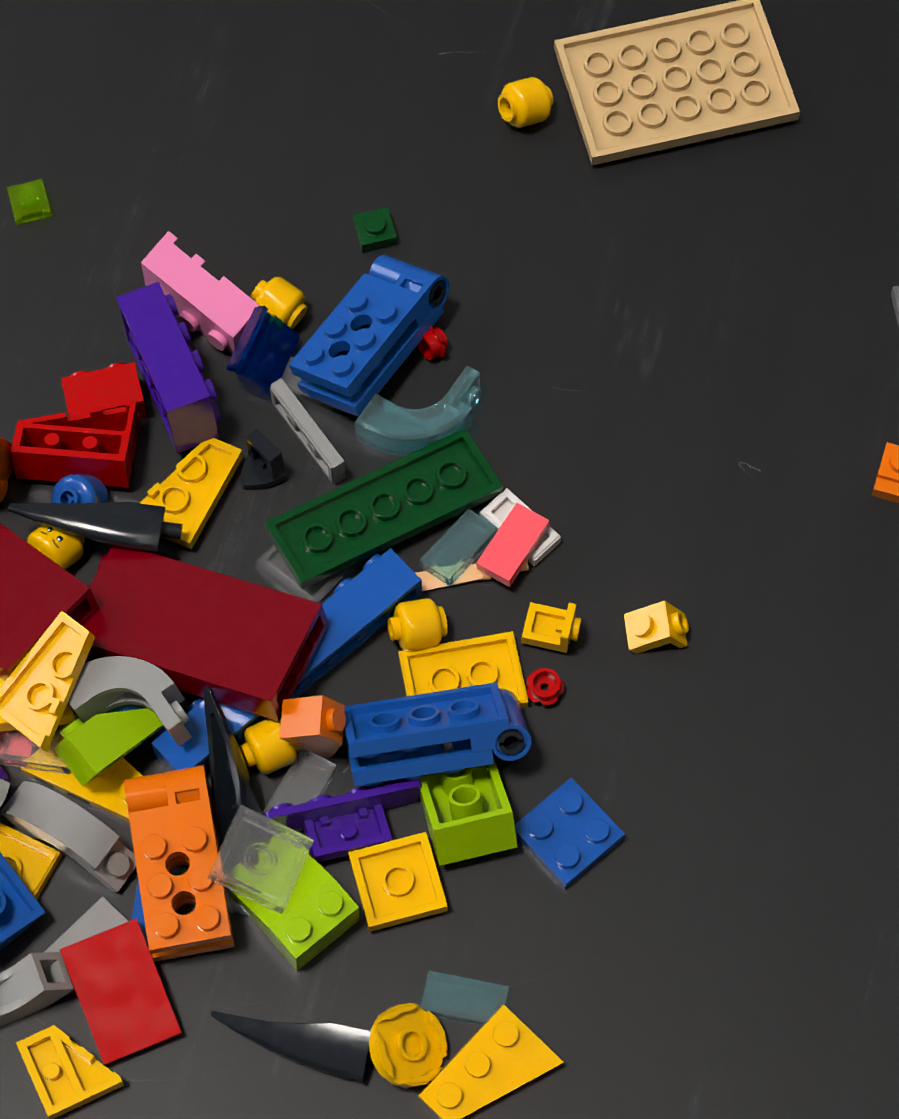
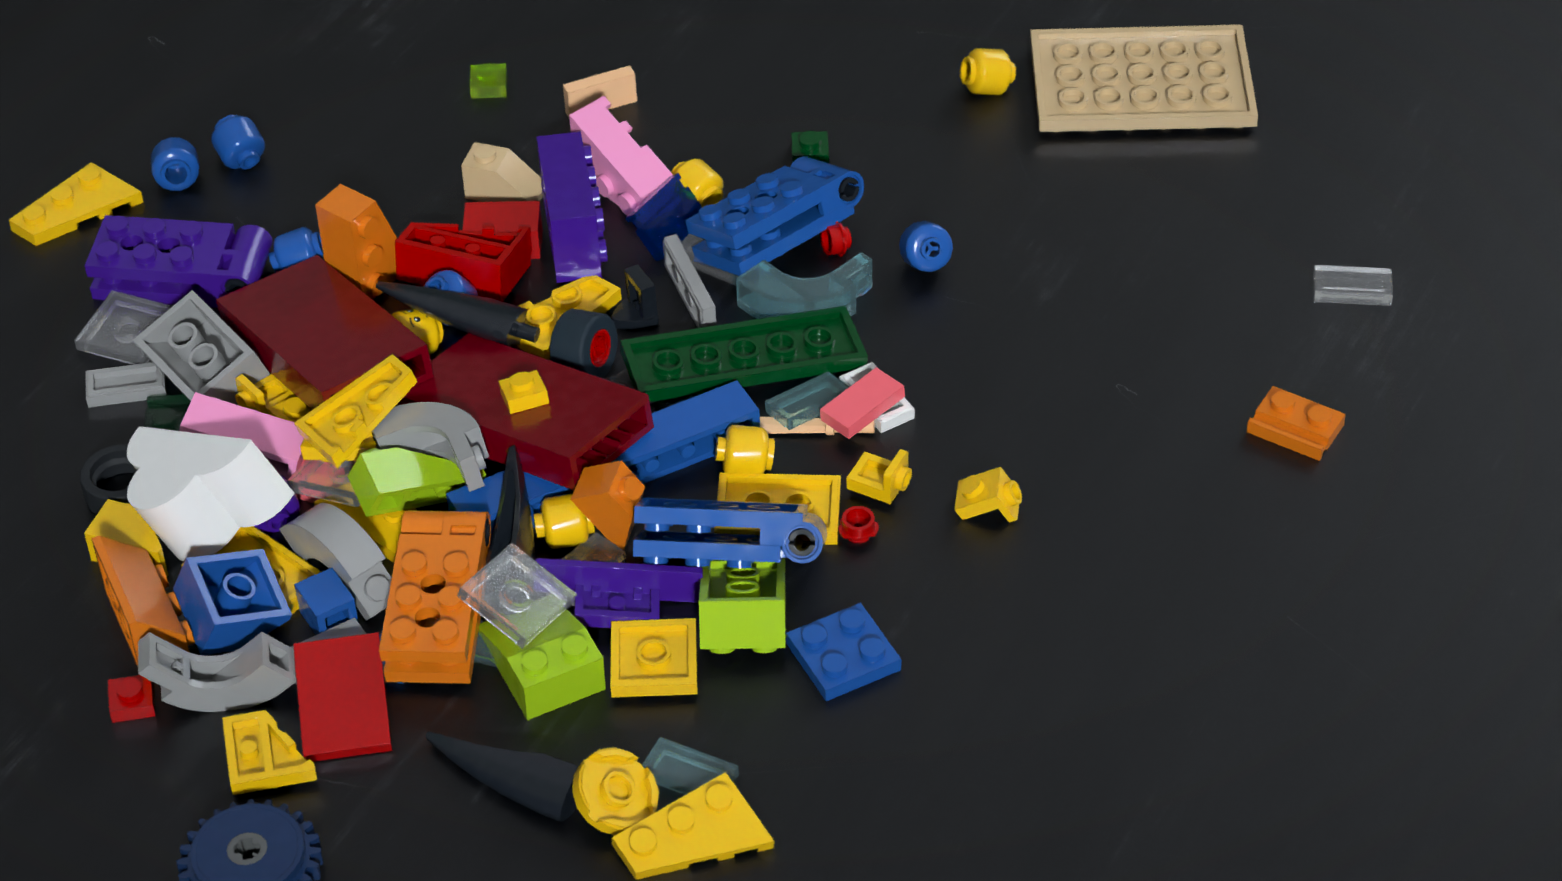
camera: 15 degrees right, 20 degrees down
(70, 887) = (325, 601): none -> blue brick
(83, 332) = (498, 176): none -> tan slope
(149, 201) = (615, 85): none -> light nougat tile
(199, 622) = (523, 391): none -> yellow plate
(228, 531) = (584, 342): none -> black wheel
(524, 341) = (917, 238): none -> blue head

